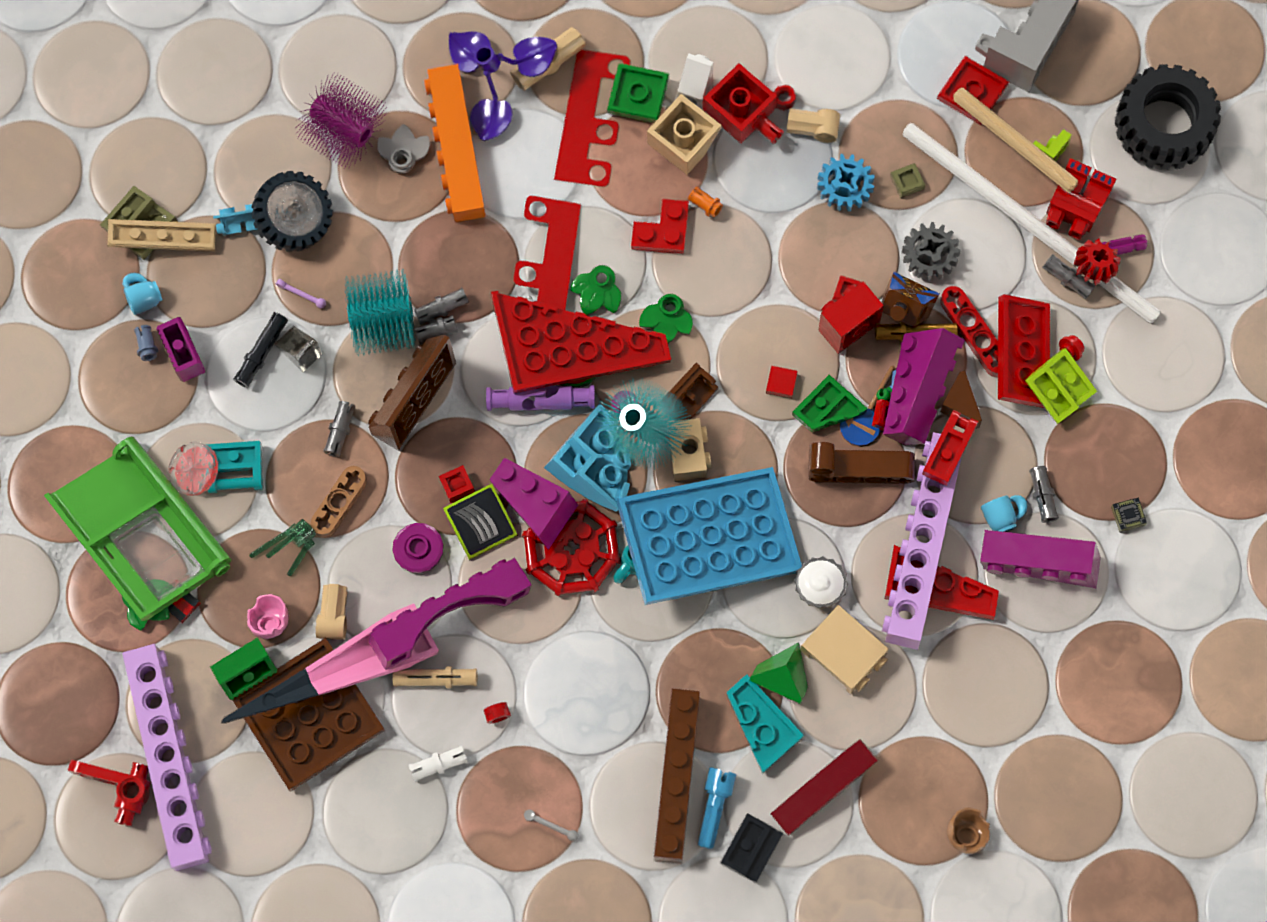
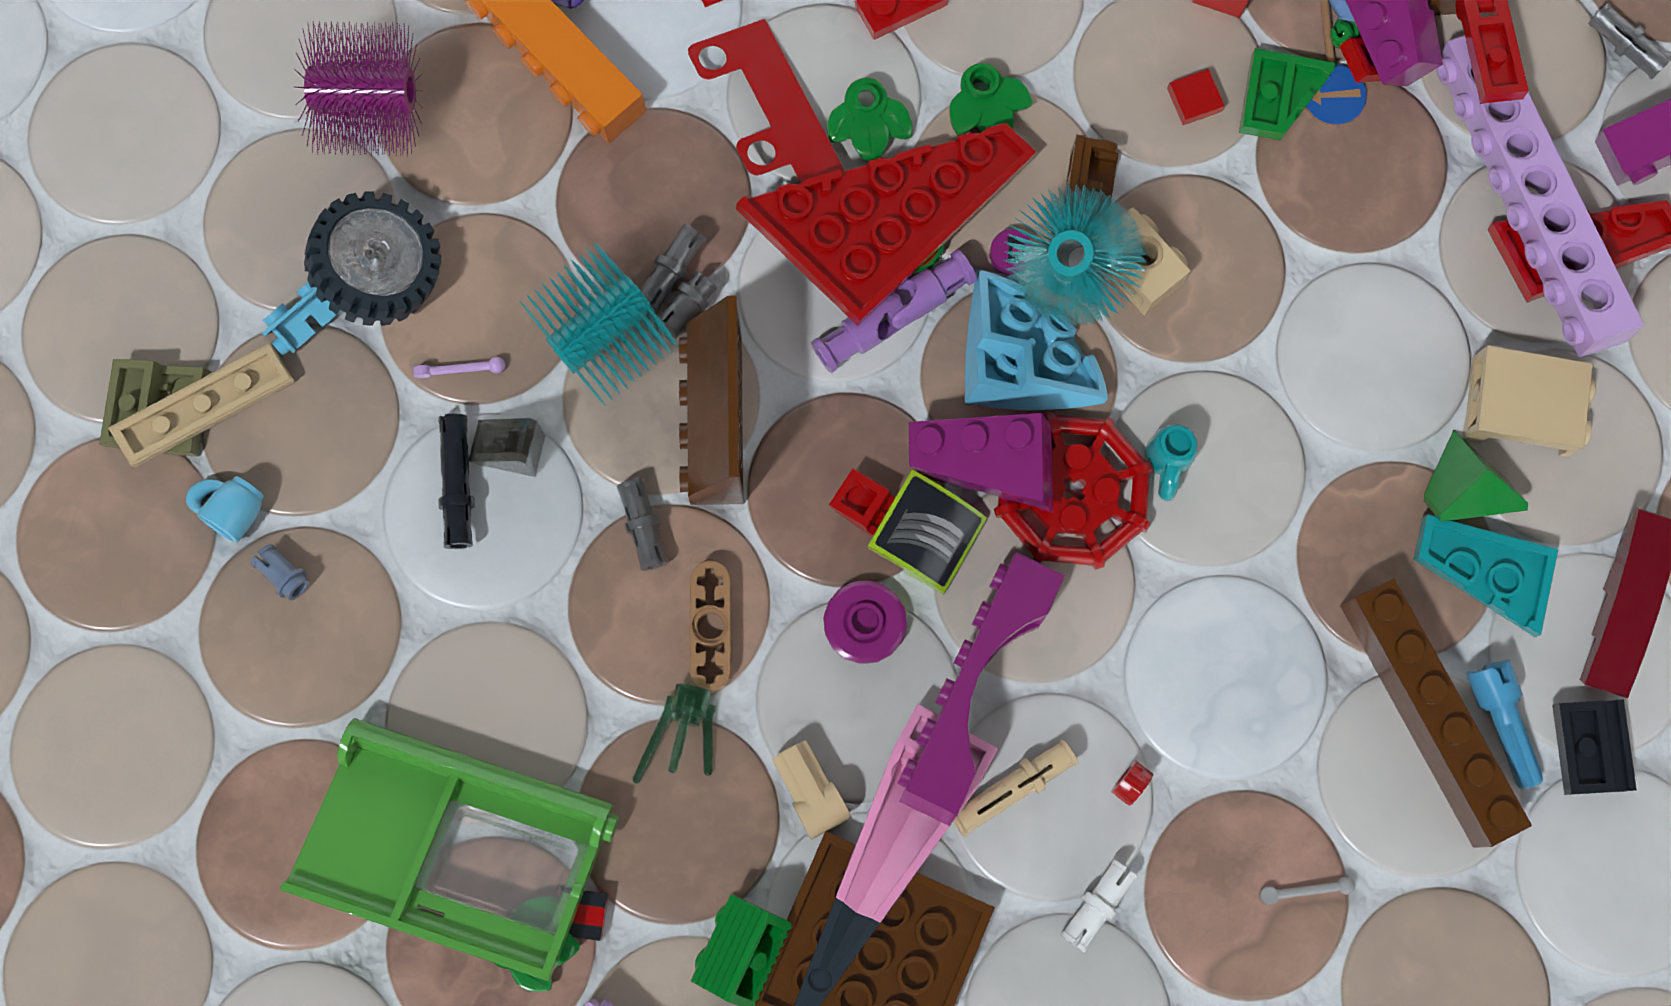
camera: 40 degrees left, 5 degrees up
(180, 349) = (340, 550): magenta brick -> none
(193, 468) = (472, 710): clear tile -> none
(238, 457) = (521, 657): teal plate -> none
(268, 617) = (724, 855): bright pink hair -> none
(403, 146) = (467, 81): light grey plate -> none
(708, 535) = (1254, 360): dark azure plate -> none
(821, 582) = (1439, 330): white piece -> none
(859, 466) = (1350, 160): reddish brown beam -> none
(1001, 514) = (1598, 96): medium azure piece -> none

